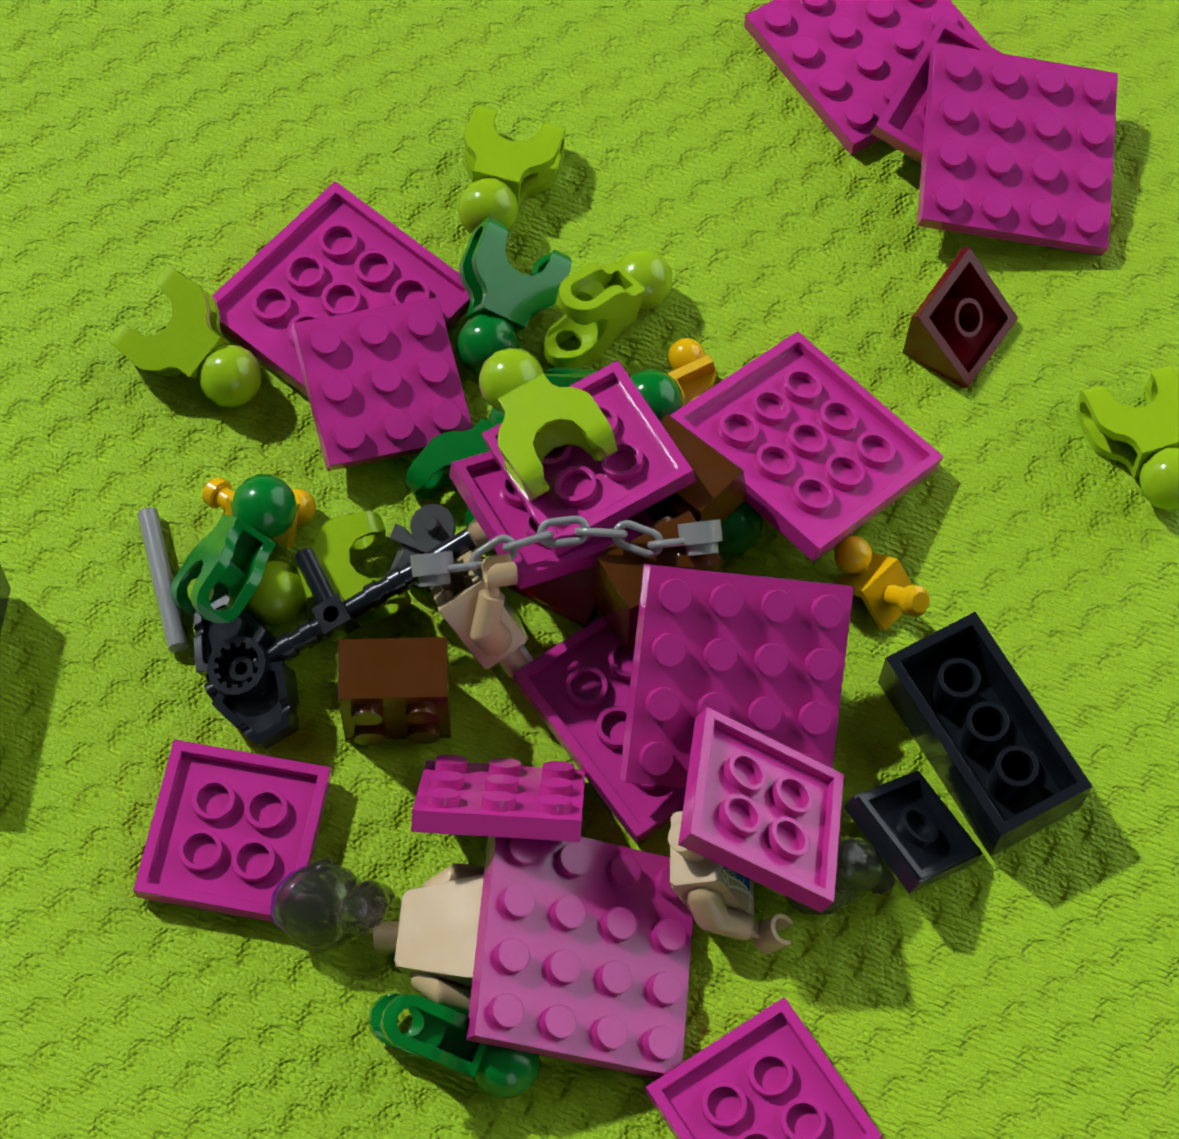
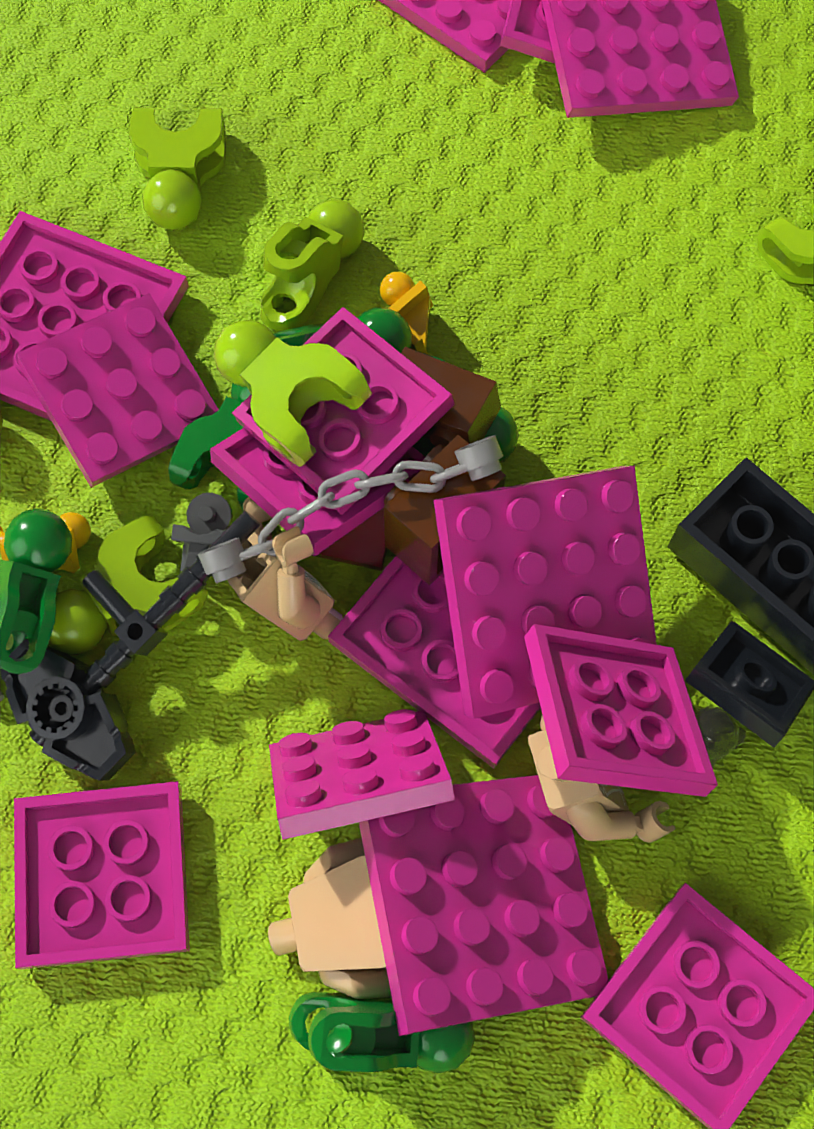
camera: 15 degrees left, 5 degrees up
(328, 905) = (217, 925): clear smoke hair -> none
(394, 689) = (218, 687): reddish brown brick -> none
(500, 295) = (208, 277): green piece -> none
(810, 444) = (541, 338): dark pink plate -> none
(878, 582) = (640, 448): yellow piece -> none
(959, 322) = (633, 195): slope -> none

